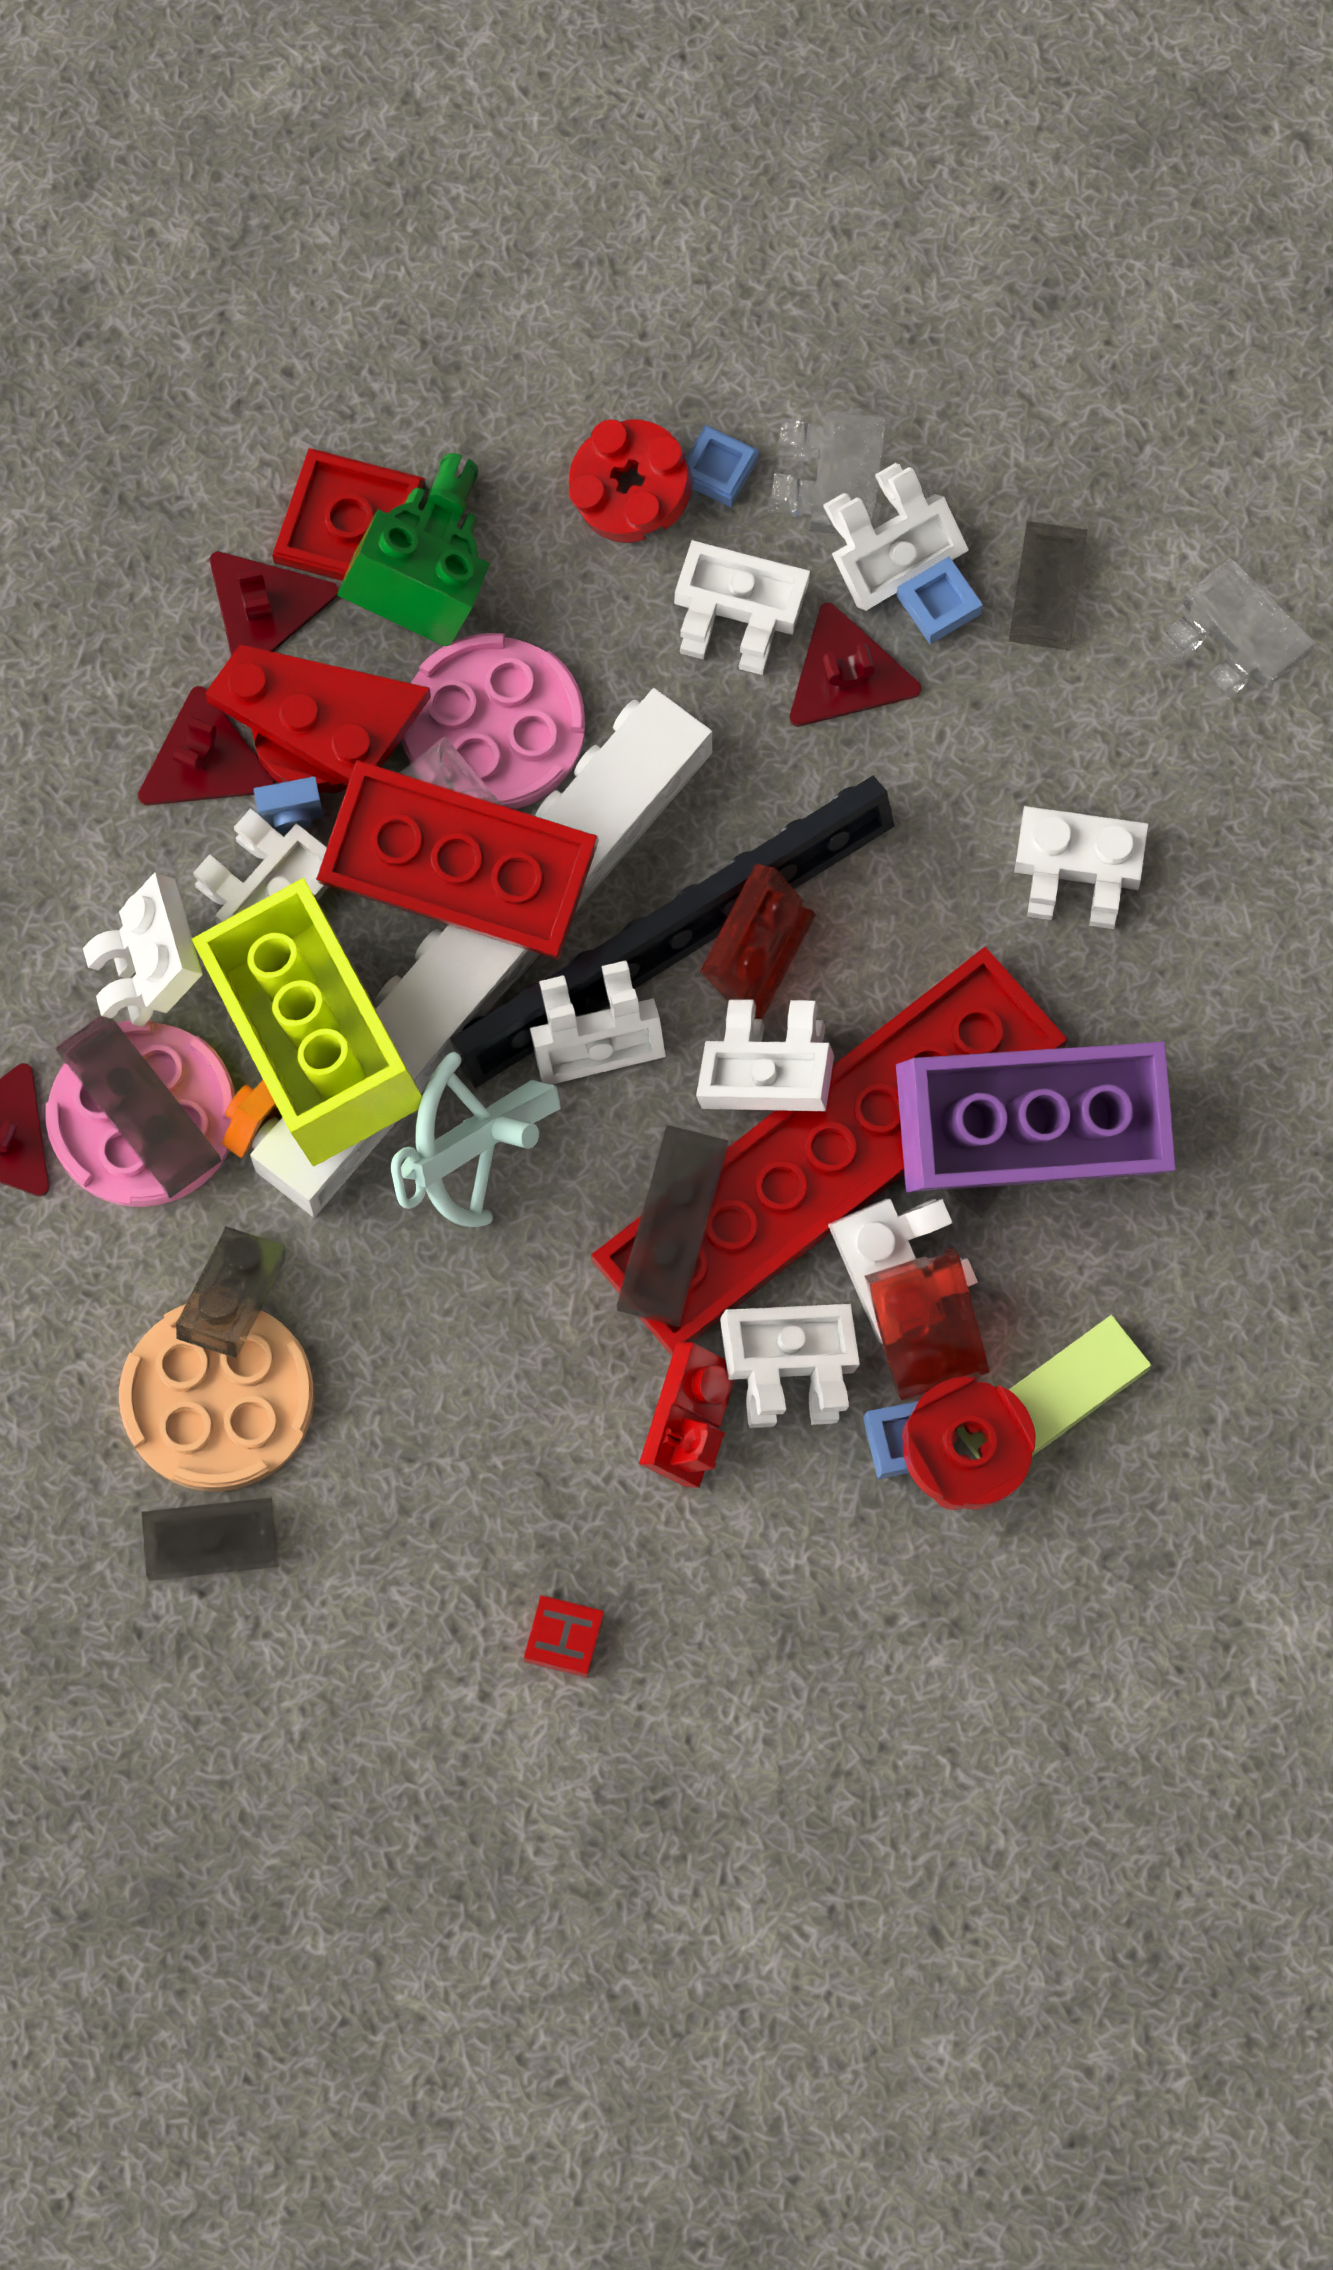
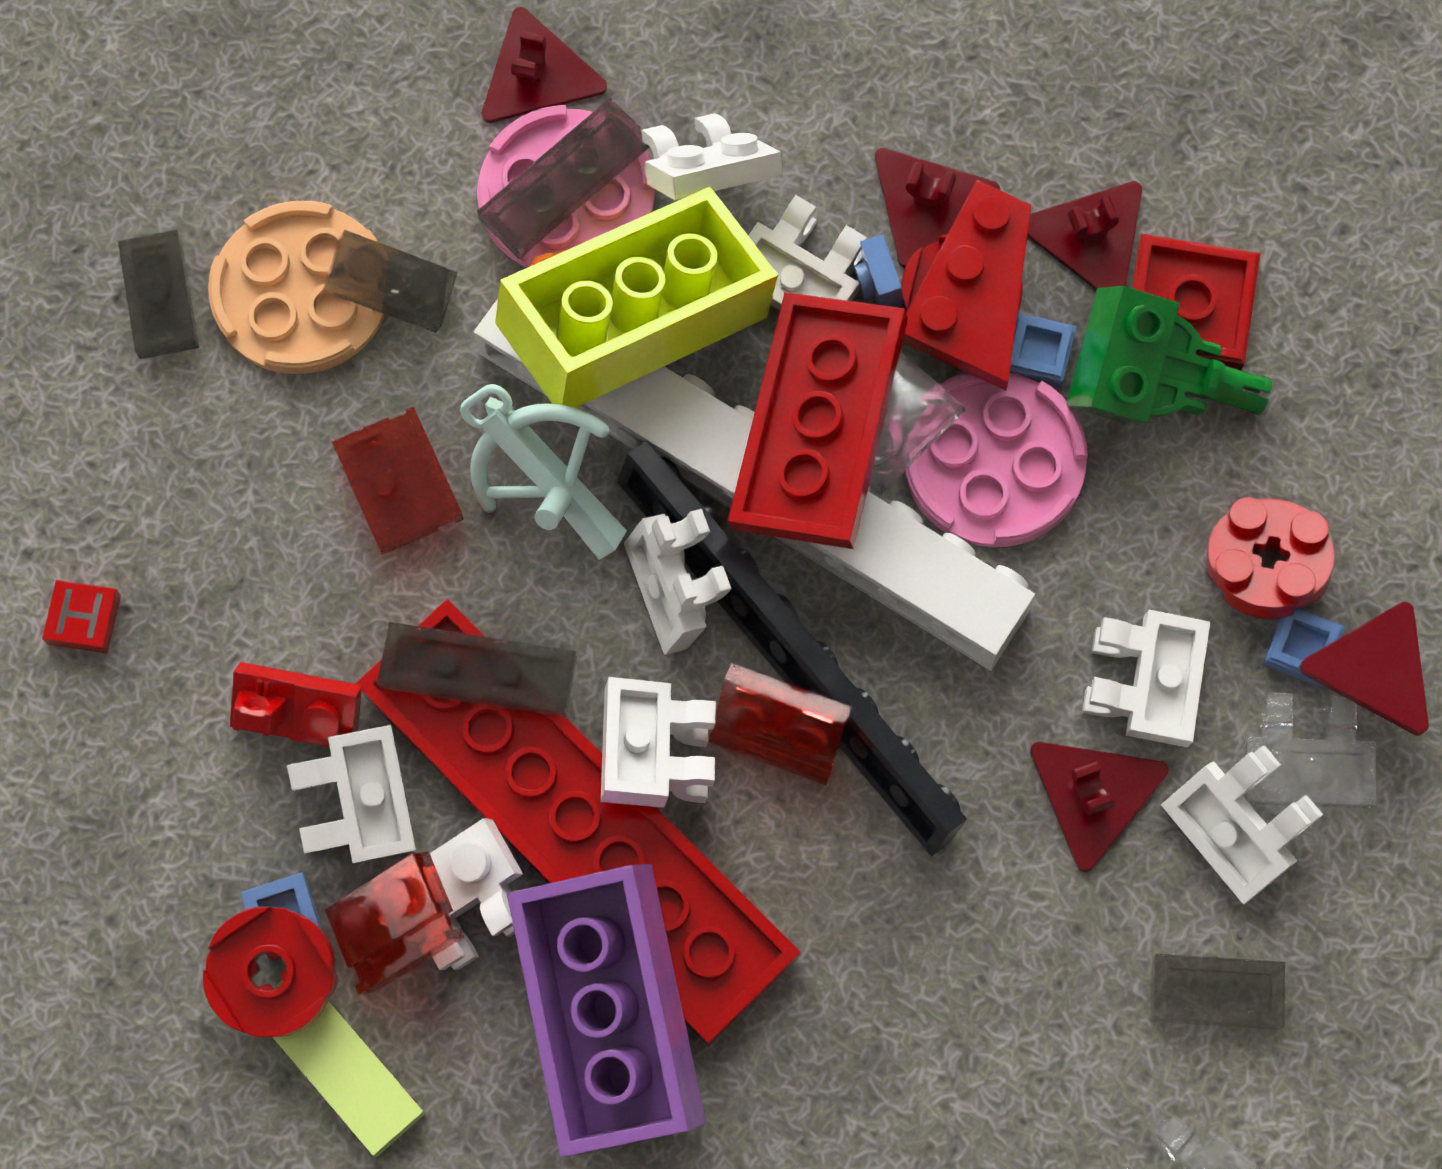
camera: 85 degrees right, 0 degrees up
(386, 656) = (1041, 349): none -> medium blue tile
(453, 1301) = (397, 480): none -> clear red plate
(757, 395) = (1377, 668): none -> dark red piece
(939, 600) = (1181, 878): medium blue plate -> none
(1079, 850) = (925, 1046): white plate -> none

